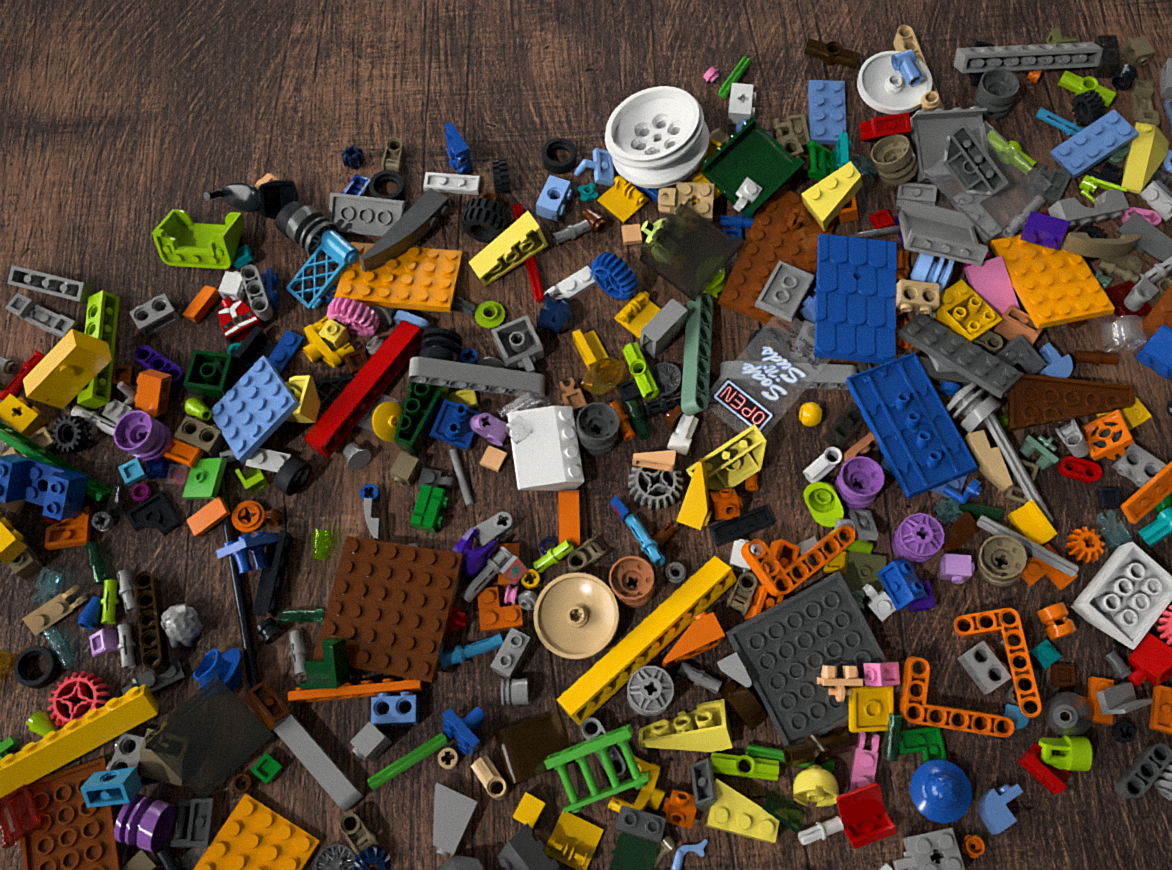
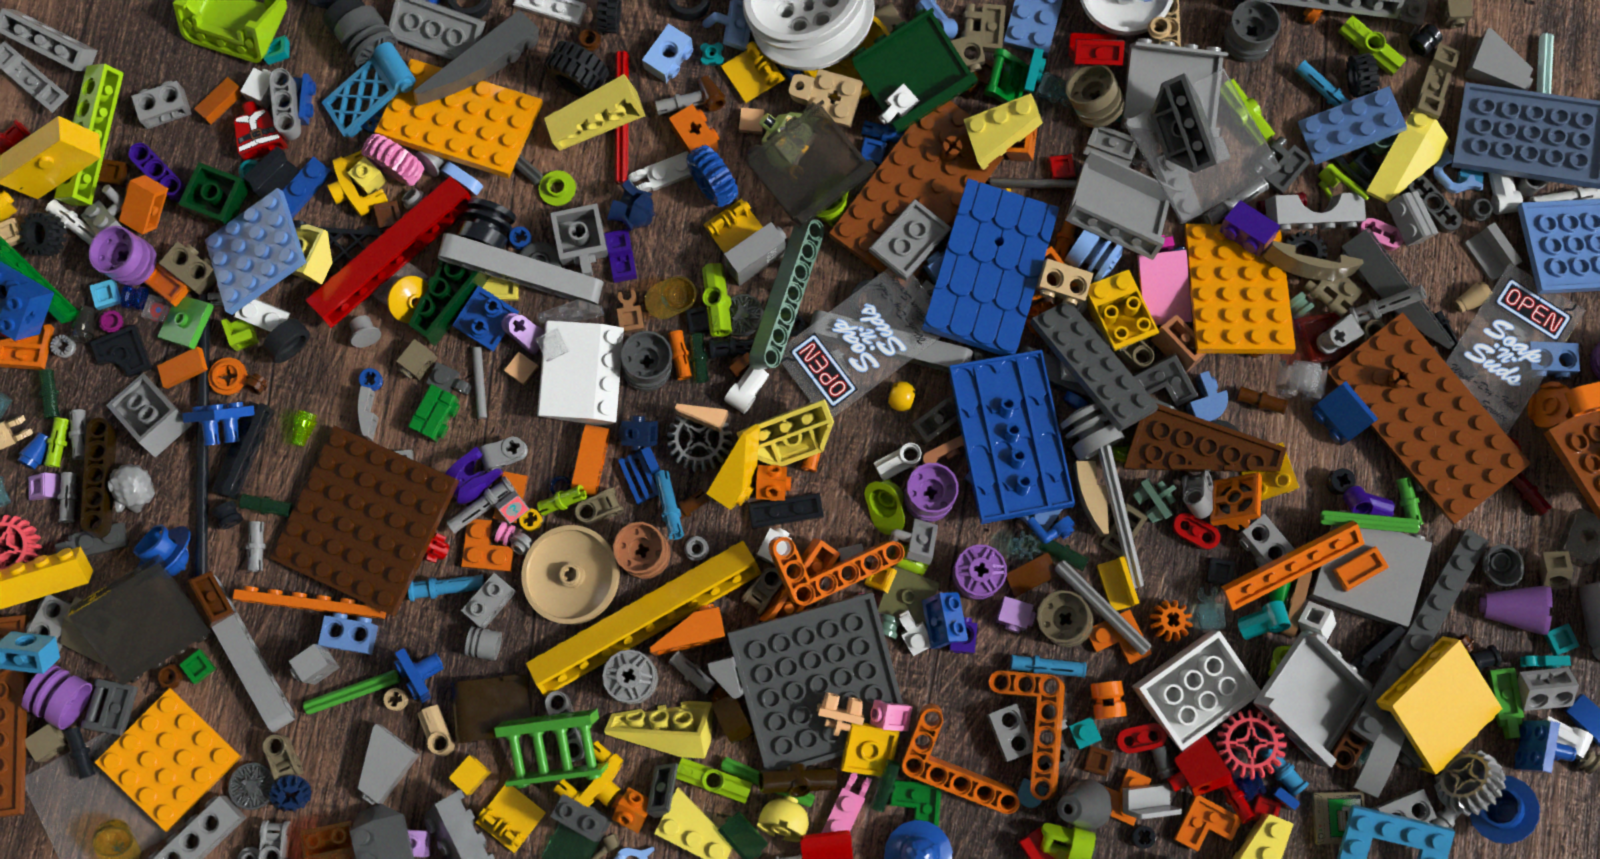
camera: 10 degrees right, 10 degrees up
(186, 561) = (148, 415): none -> light grey slope
(196, 407) = (192, 234): lime cone -> none
(332, 670) = (283, 576): dark green panel -> none
(554, 355) = (621, 255): none -> dark purple slope
(586, 247) = (692, 119): none -> orange brick
(589, 347) = (666, 257): yellow panel -> none
(602, 511) = (630, 458): none -> blue tile
(610, 484) = (638, 432): none -> dark blue brick
(987, 604) = (1049, 666): none -> dark azure pin
(1092, 648) = (1140, 738): none -> red plate

